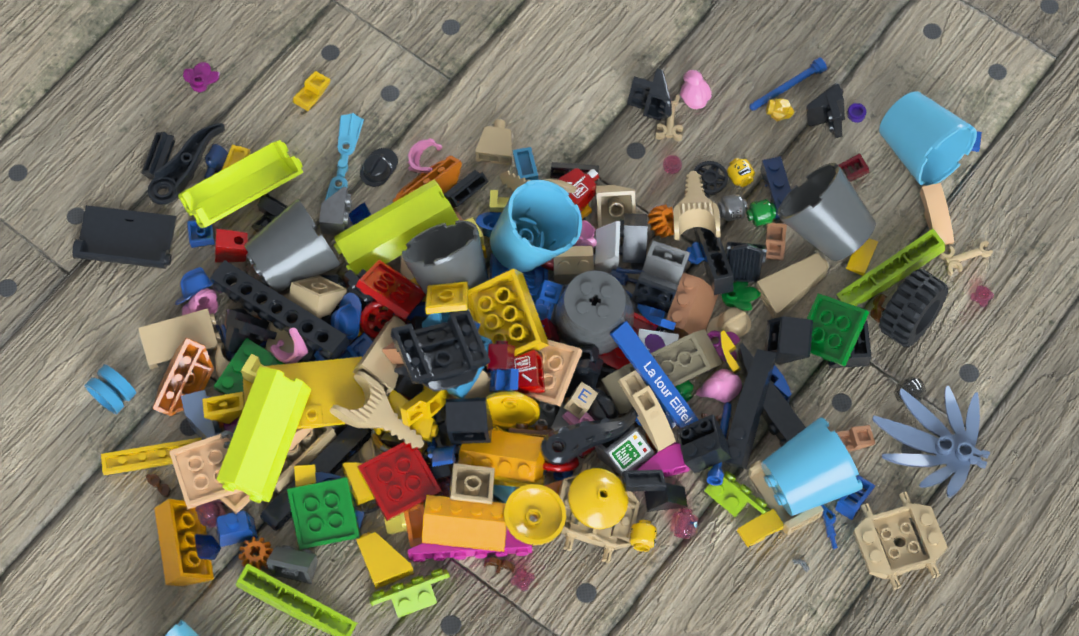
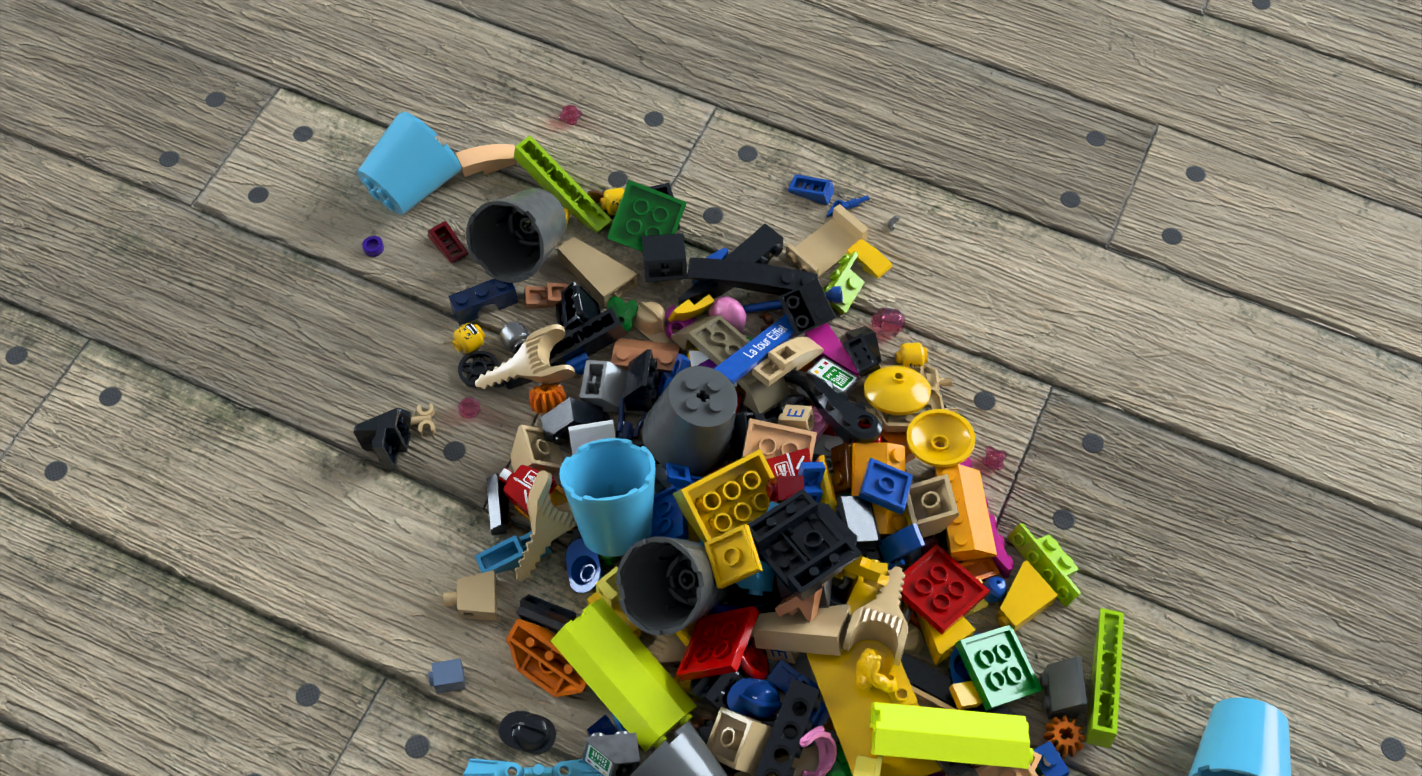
camera: 105 degrees left, 5 degrees down
(330, 393) = (874, 670): none -> yellow hair
(392, 539) = (997, 589): none -> blue piece
(415, 153) = (509, 690): bright pink helmet -> none
(435, 116) = (447, 676): none -> sand blue brick
(492, 447) = (885, 486): none -> blue tile
(492, 561) = (984, 476): reddish brown piece -> none
(497, 203) = (555, 576): light yellow panel -> none
(695, 90) = (367, 401): bright pink hair -> none
(761, 212) = (516, 308): green head -> none
(779, 109) = (382, 314): yellow rock -> none
(811, 470) = (808, 209): medium azure cone -> none
(816, 67) = (320, 287): blue piece -> none
(828, 109) = (379, 259): black piece -> none
(857, 438) = (752, 199): nougat slope -> none
(873, 317) = (611, 200): none -> yellow head
(877, 535) = (866, 152): tan piece -> none
(911, 385) = (689, 157): clear smoke head -> none
(913, 307) = (610, 149): black tyre -> none
(950, 450) = (741, 119): sand blue plant -> none
(954, 261) = (526, 132): tan bar -> none

